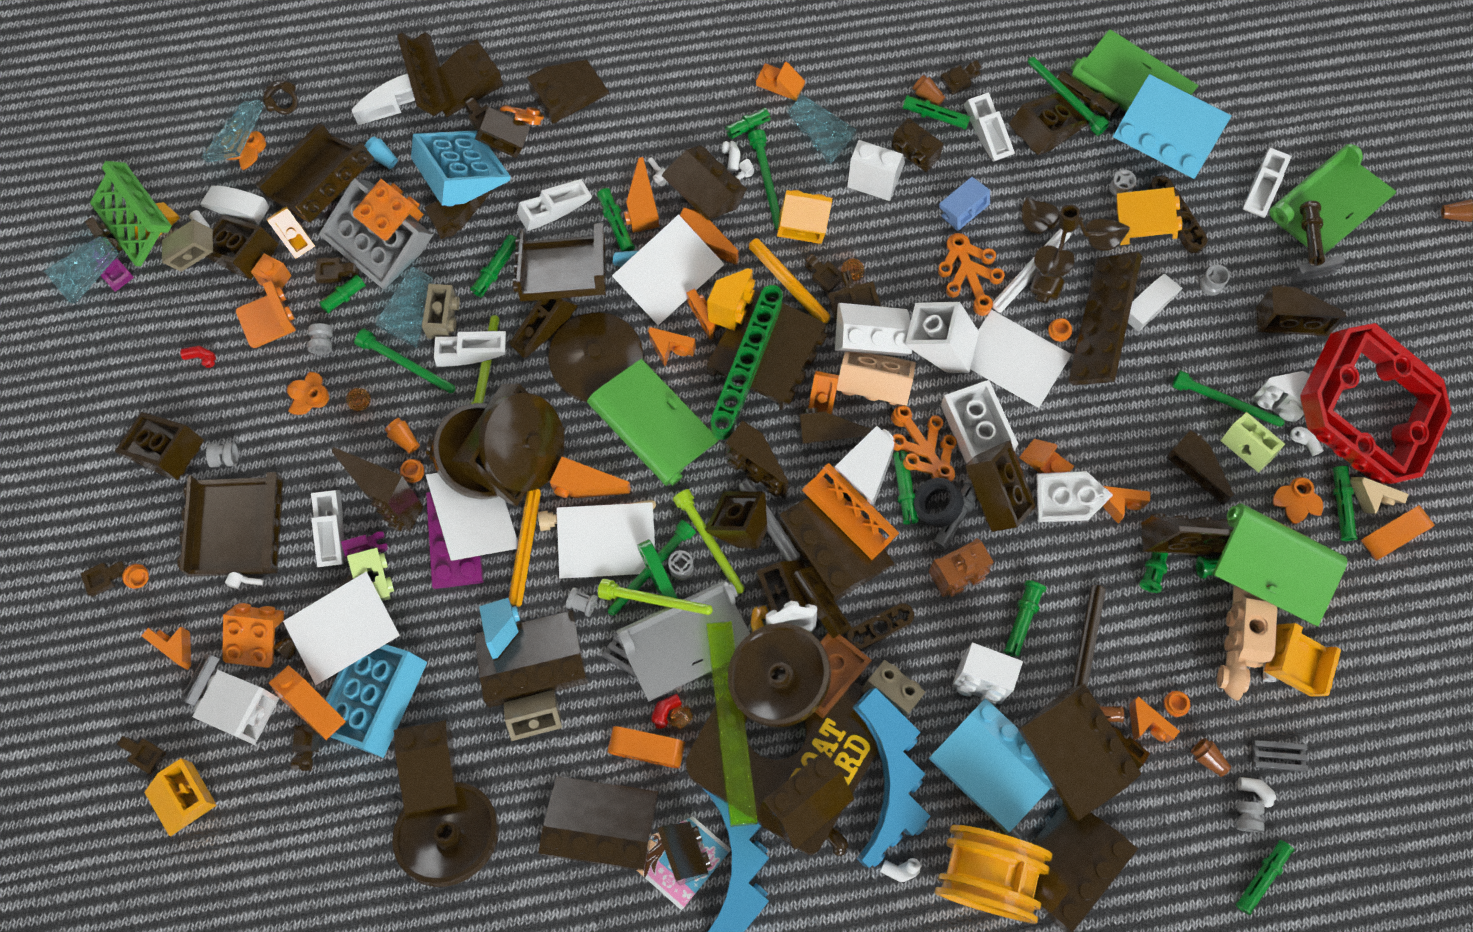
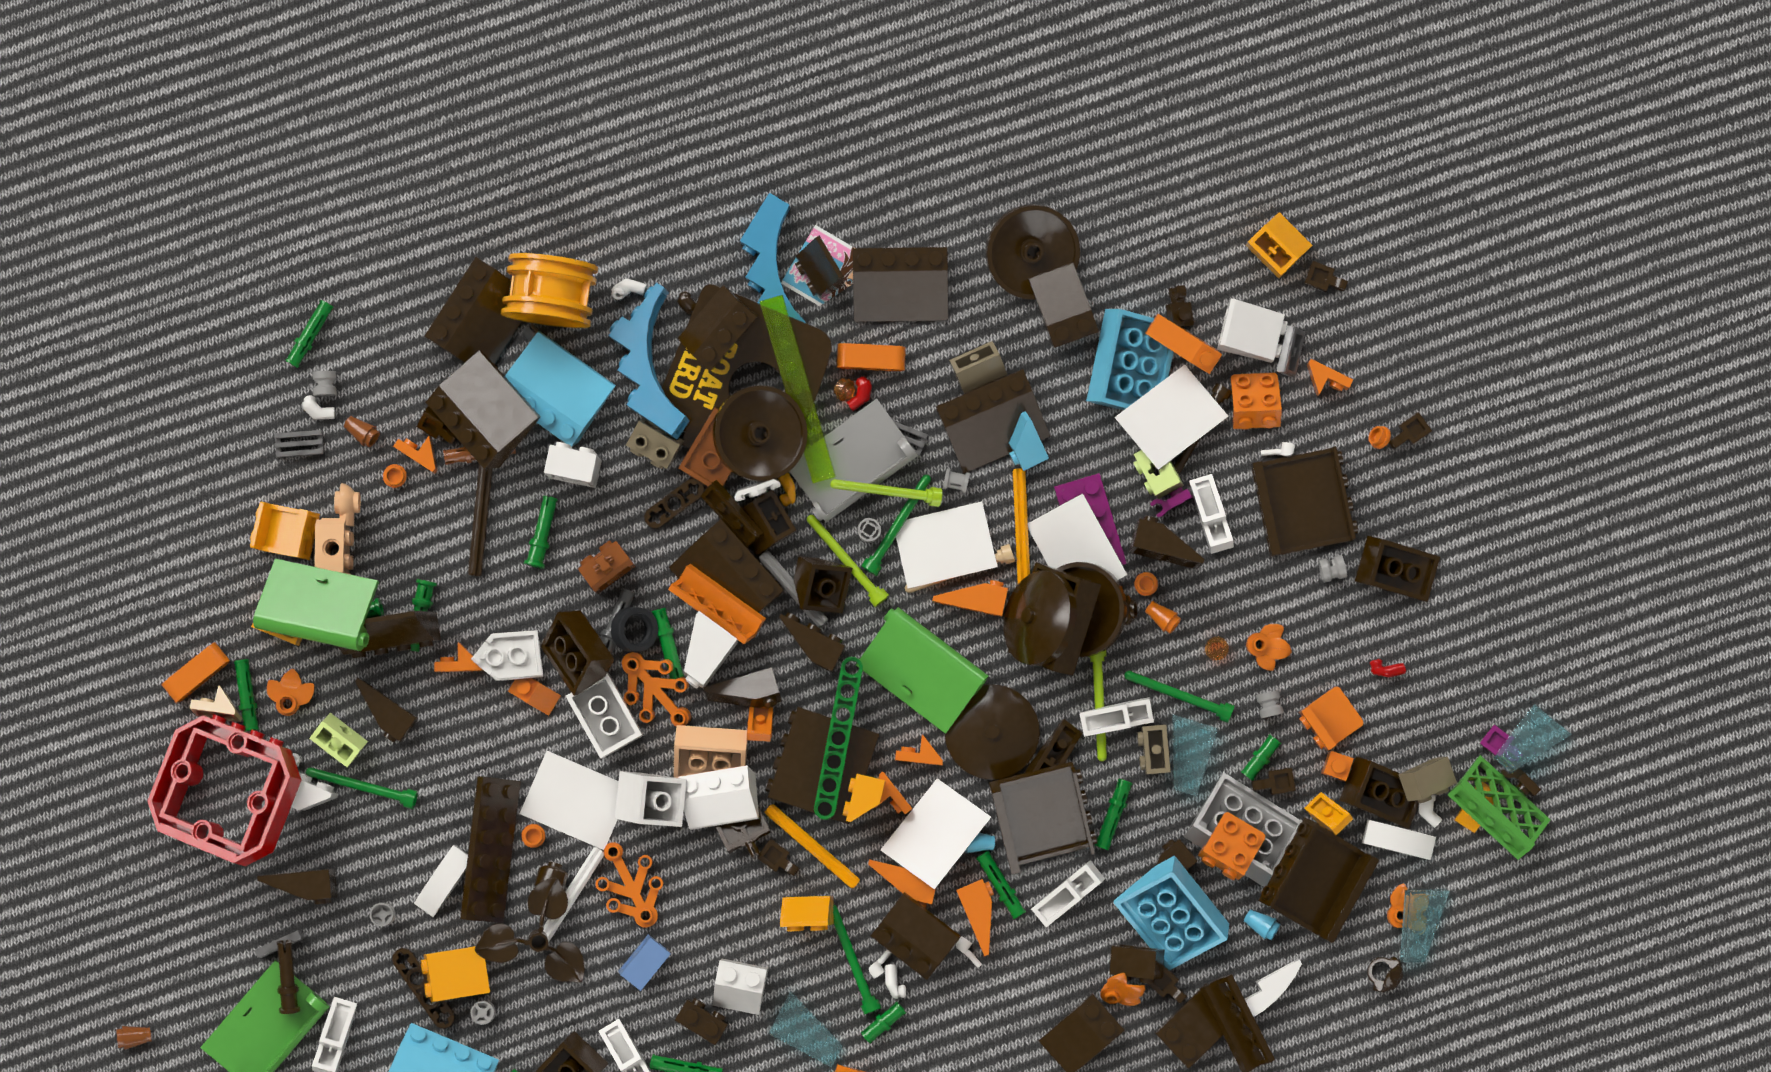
camera: 175 degrees right, 15 degrees up
(655, 569) = (890, 518): green beam -> none
(855, 267) = (749, 869): clear orange plate -> none

